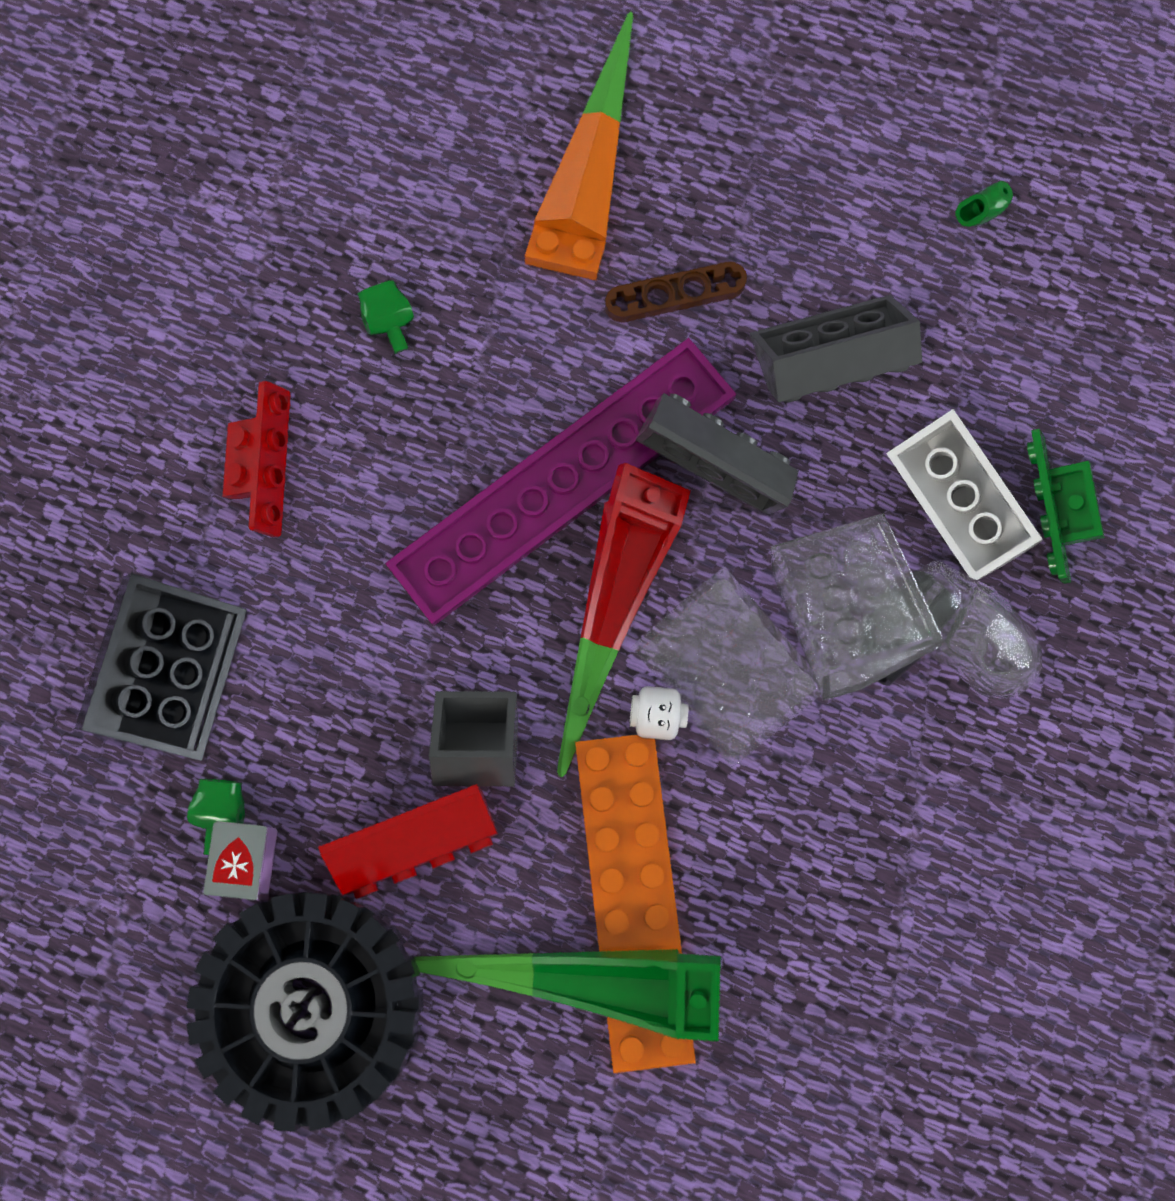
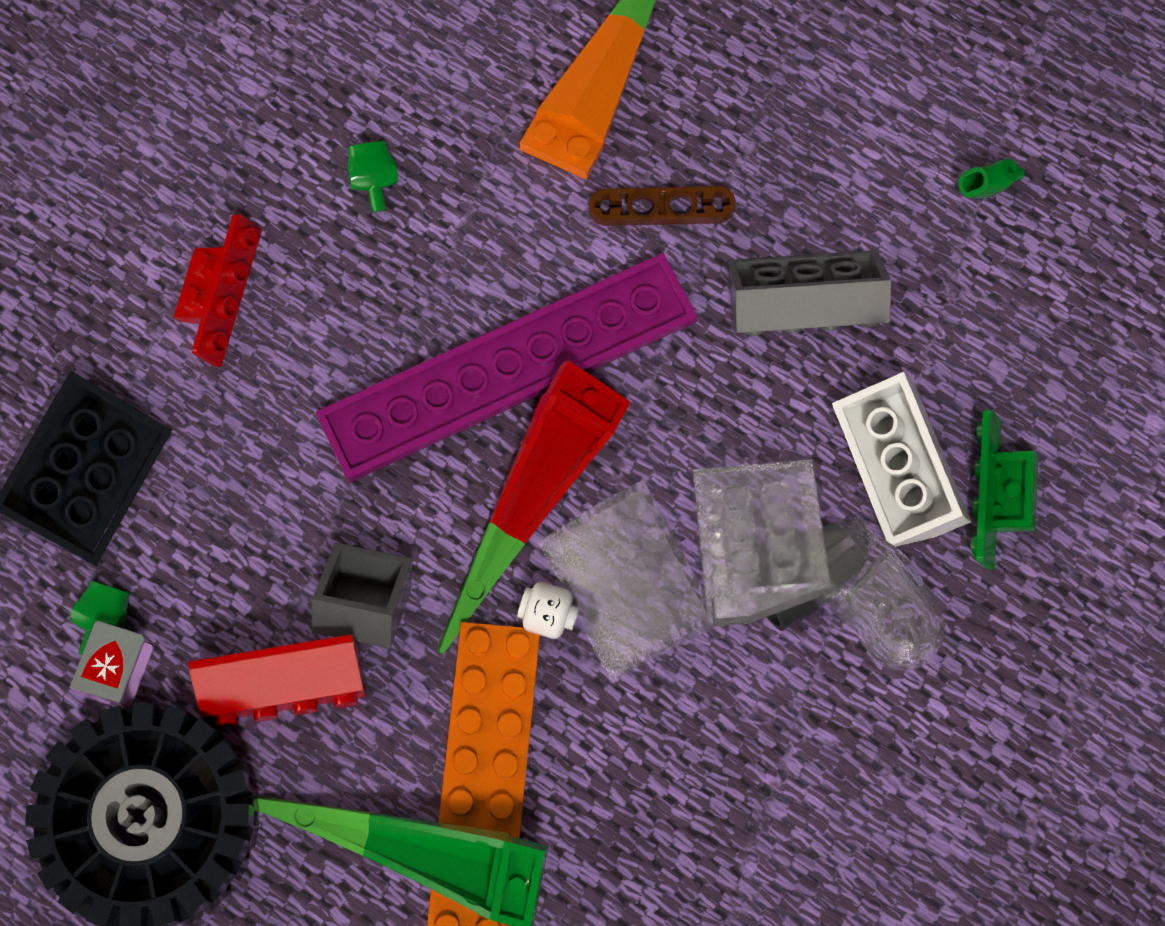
camera: 15 degrees right, 5 degrees down
(718, 454) = (662, 370): dark grey slope -> none

